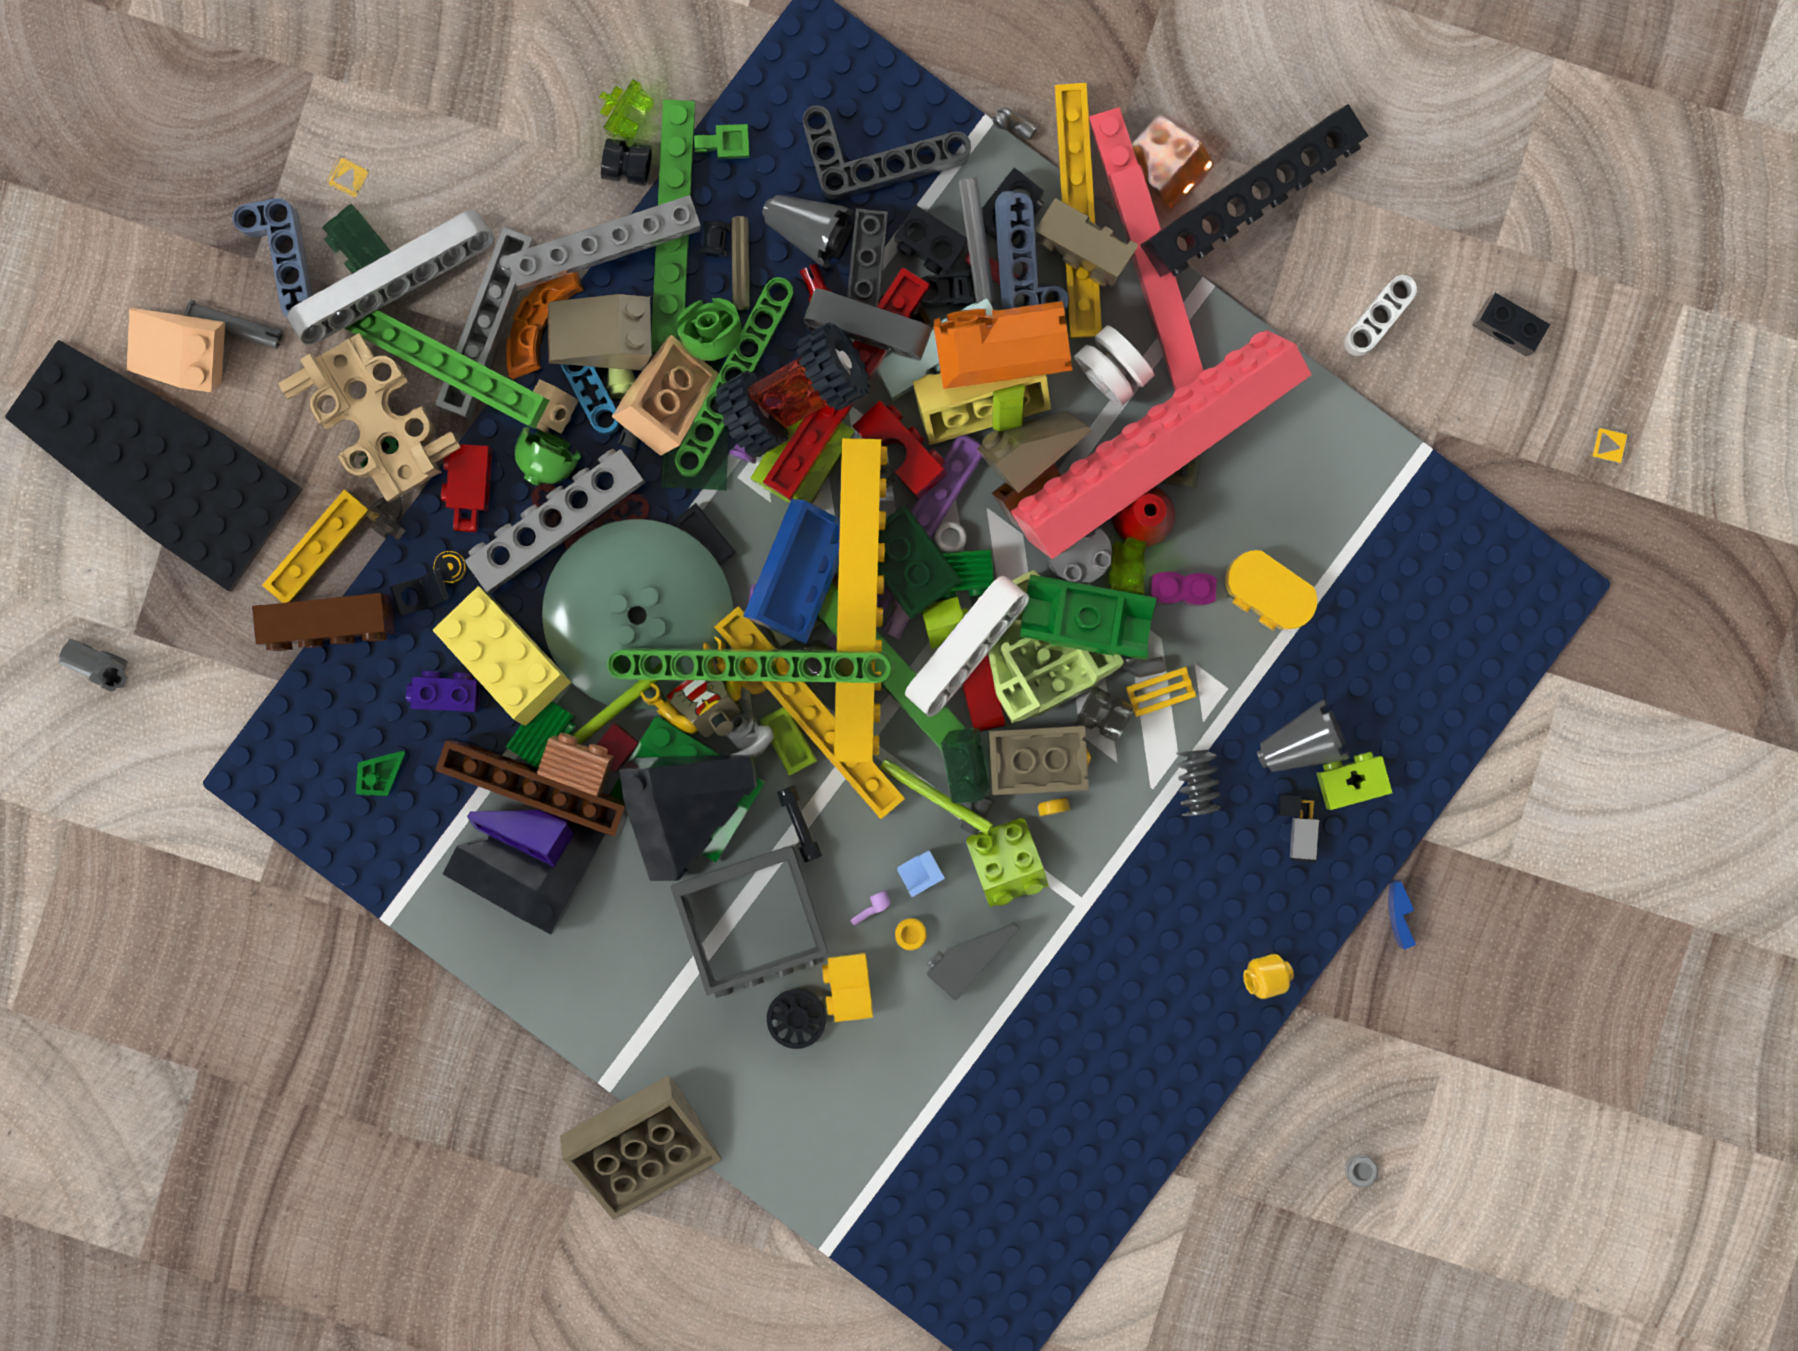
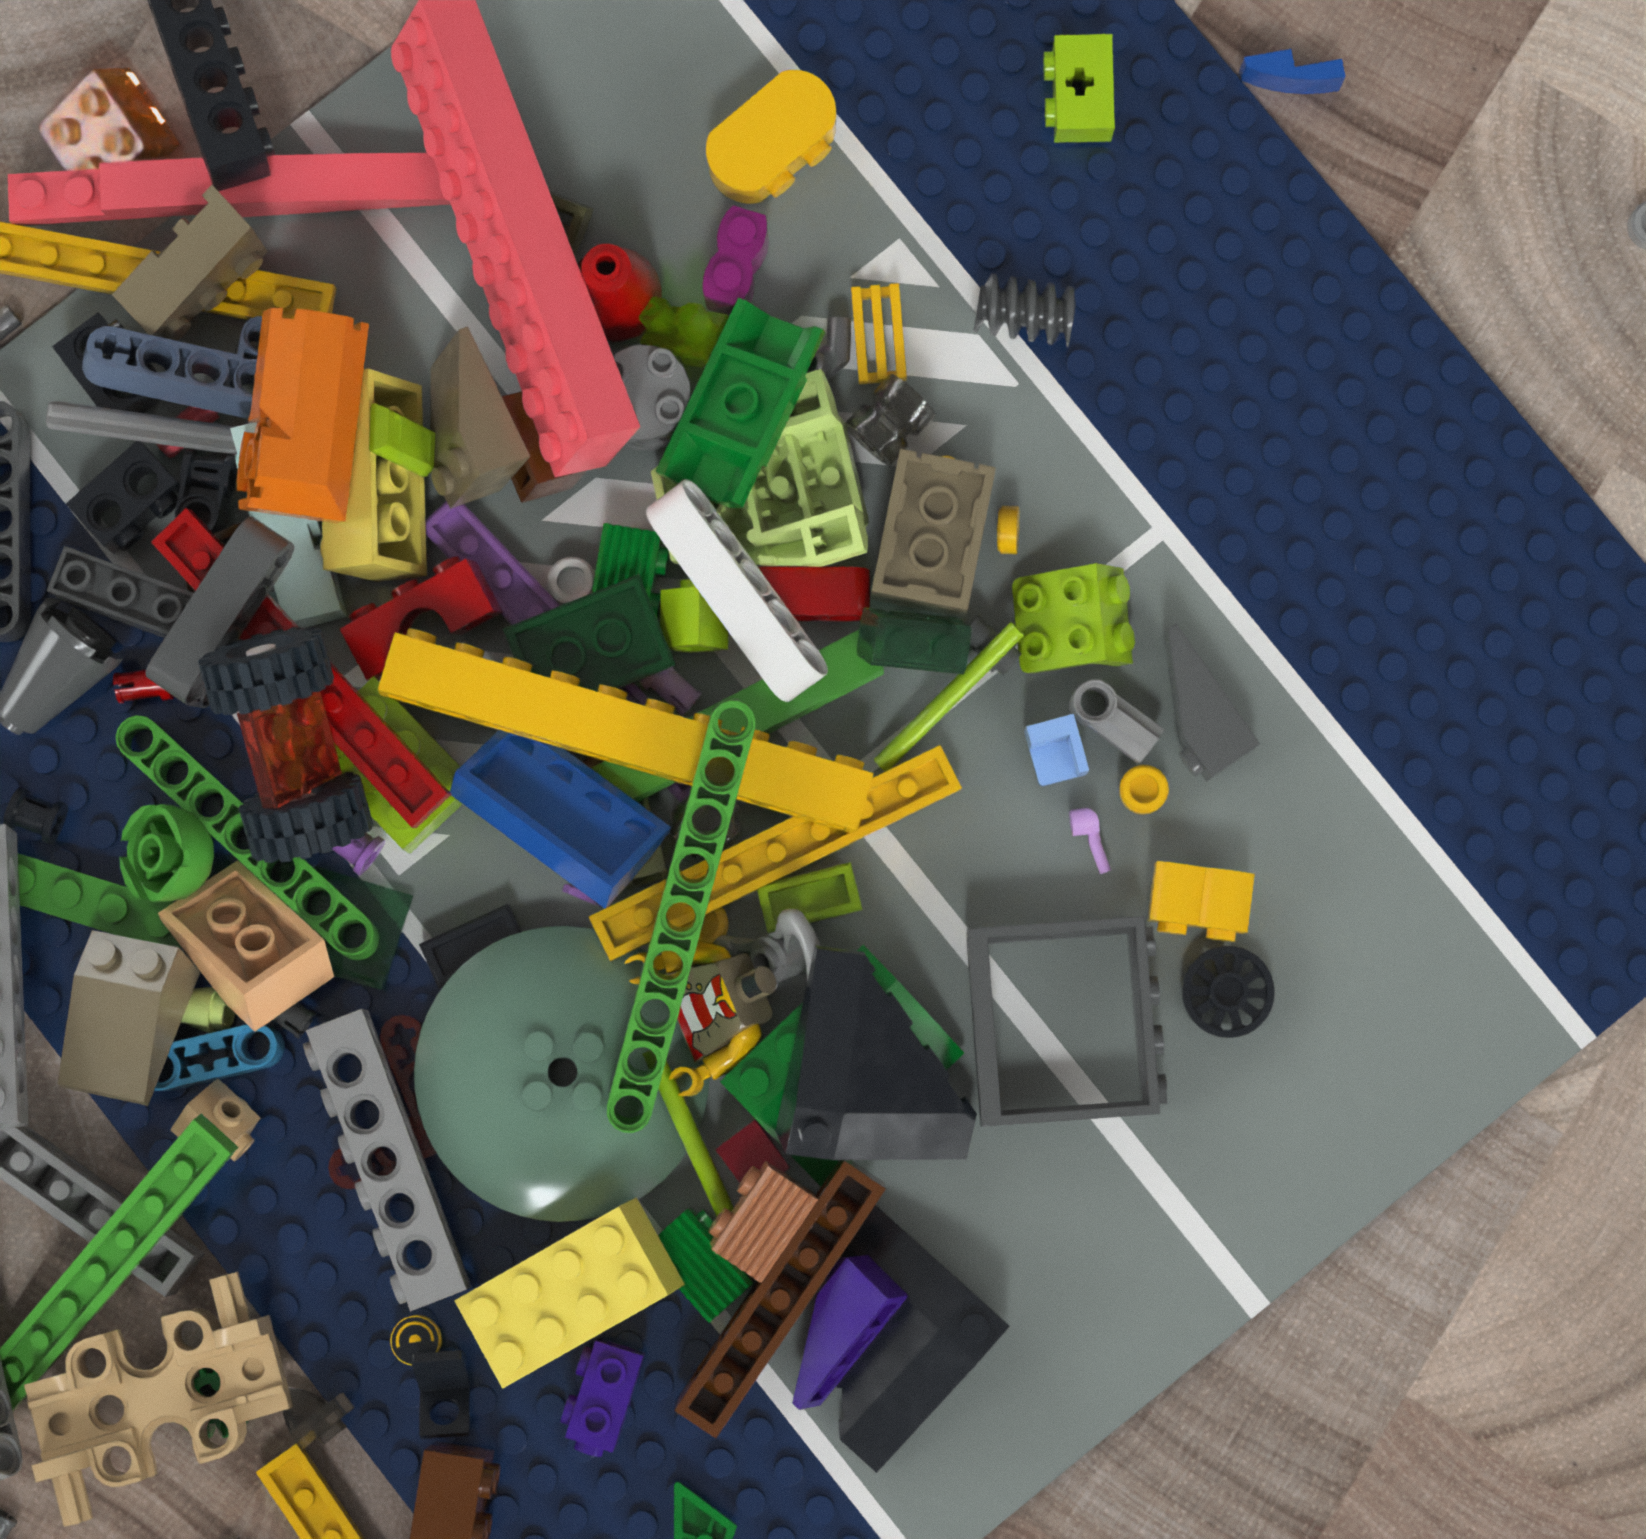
camera: 65 degrees left, 5 degrees down
(467, 484) = (297, 1280): red brick -> none
(531, 320) = (79, 1121): orange tile -> none
(544, 457) = (289, 1152): bright green cylinder -> none
(639, 1148) = (1364, 1278): dark tan slope -> none
(740, 263) = (80, 785): dark tan axle -> none
(809, 850) = (980, 907): black bar -> none
(948, 907) = (1119, 723): none -> light grey piece
(1114, 365) = (382, 273): white wheel -> none
(1268, 976) = (1336, 282): yellow head -> none
(1303, 832) = (1136, 180): light grey piece -> none
(1304, 741) = (1005, 142): dark grey cone -> none

